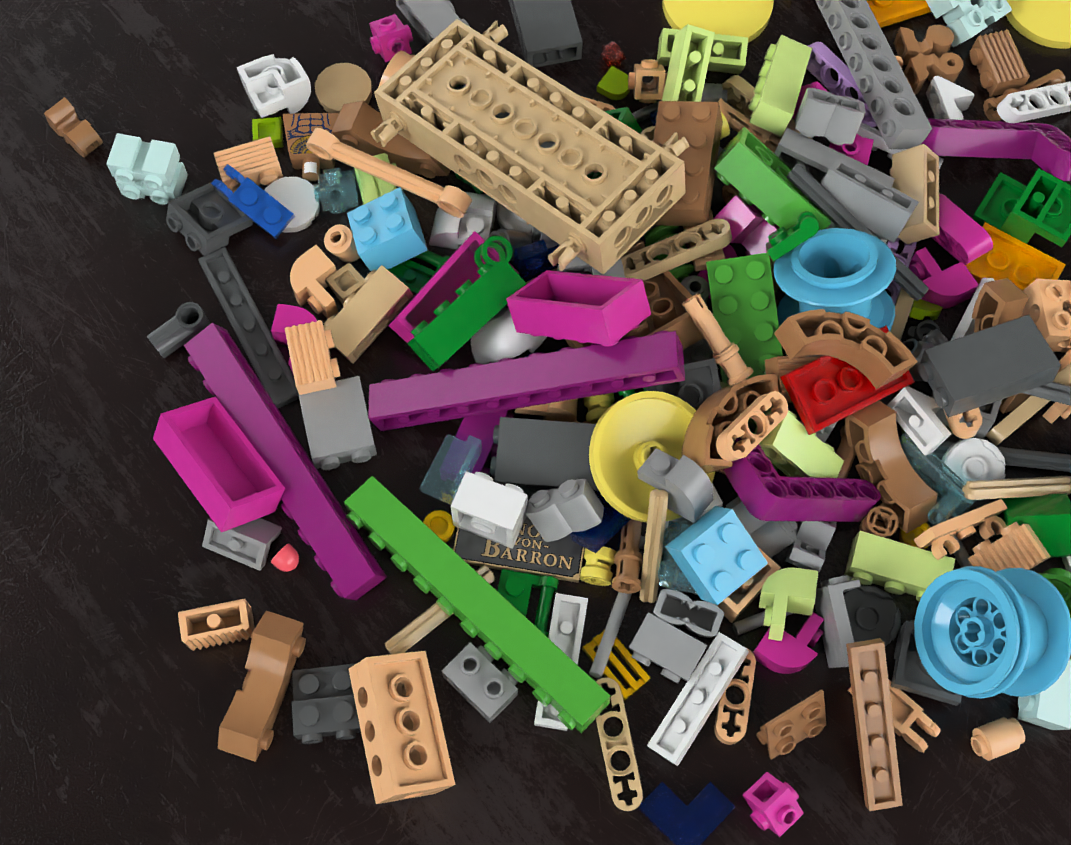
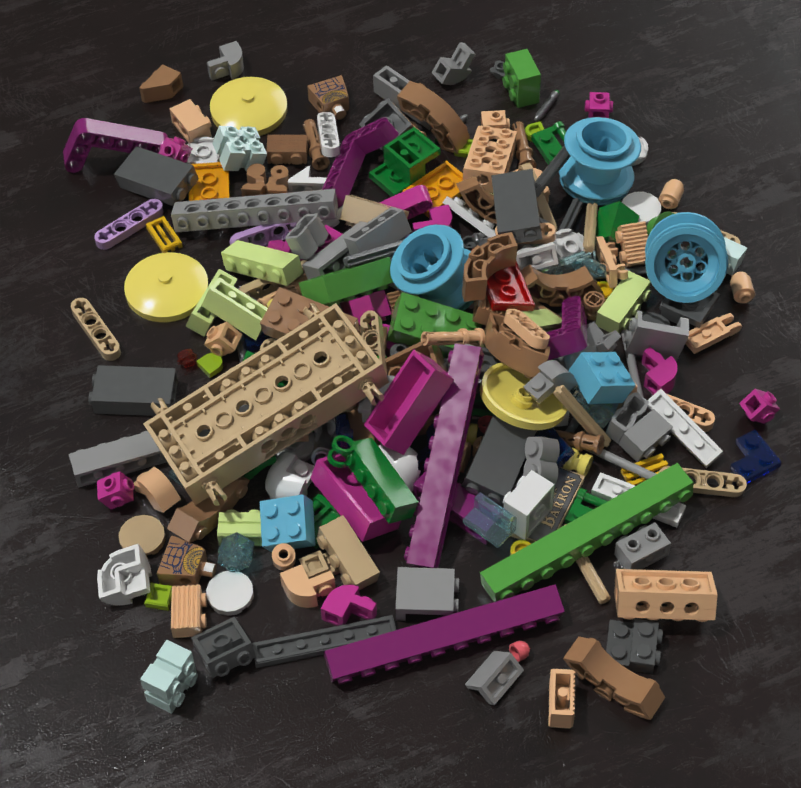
camera: 70 degrees left, 15 degrees down
(77, 133) = (108, 729): medium nougat leg -> none
(176, 330) = (314, 686): dark grey piece -> none
(218, 463) = (441, 669): dark pink piece -> none
(255, 203) = (227, 608): blue hinge -> none
(311, 357) = (378, 588): light nougat brick -> none
(449, 199) = (205, 541): light nougat piece -> none
(785, 240) = (399, 280): green plate -> none
(787, 591) = (632, 355): yellowish green brick -> none
(794, 725) = (710, 384): medium nougat hinge -> none
(874, 724) = (725, 336): medium nougat plate -> none

